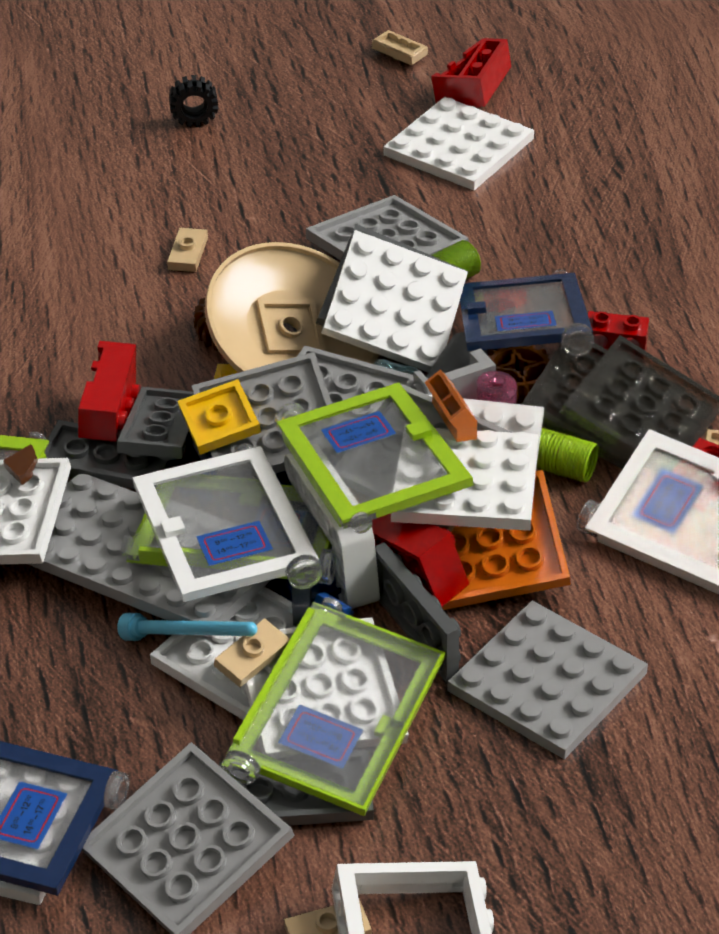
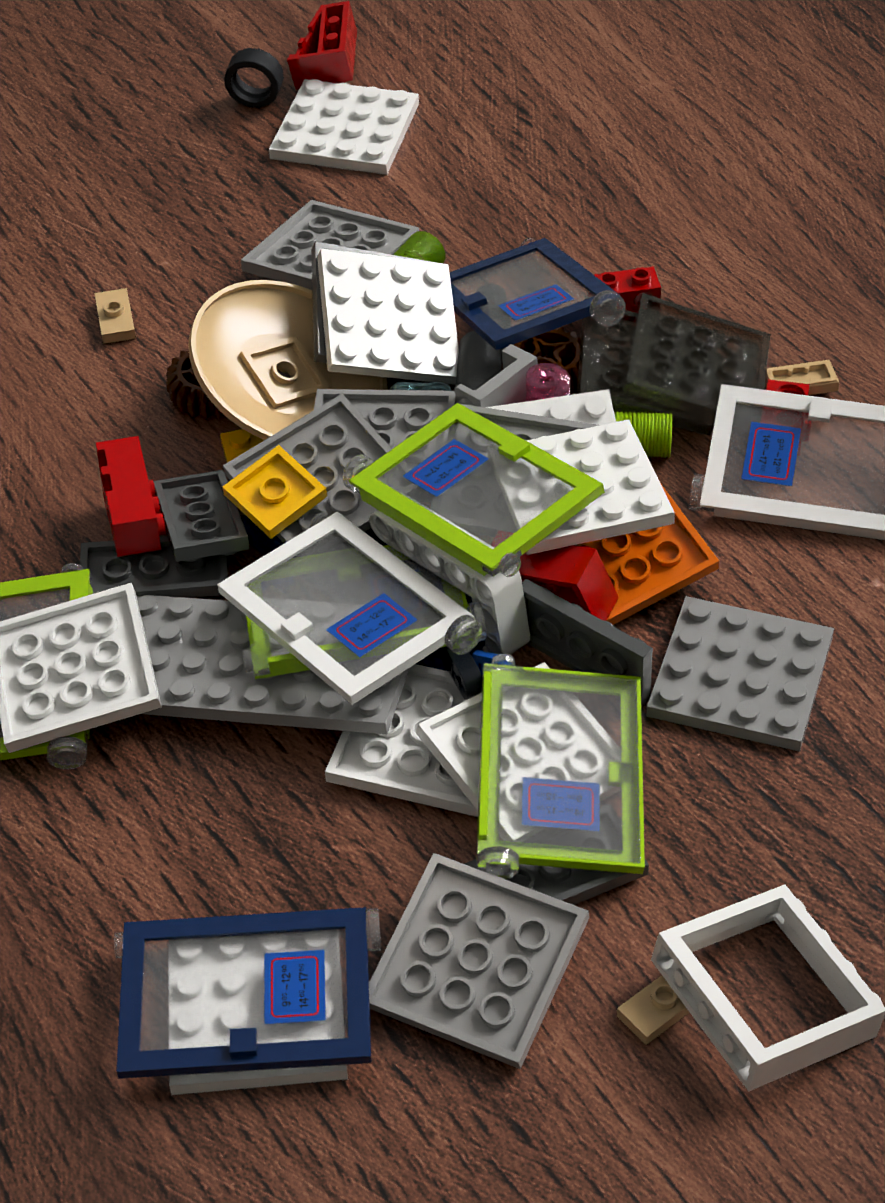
camera: 20 degrees left, 5 degrees up
(22, 464) = (84, 604): reddish brown tile -> none
(136, 626) = (289, 747): medium azure piece -> none
(193, 88) = (30, 134): black tyre -> none
(251, 653) = (448, 737): tan plate -> none
(387, 95) = (260, 61): none -> black tyre
(399, 47) = (226, 35): tan plate -> none
(452, 407) = (533, 415): orange piece -> none

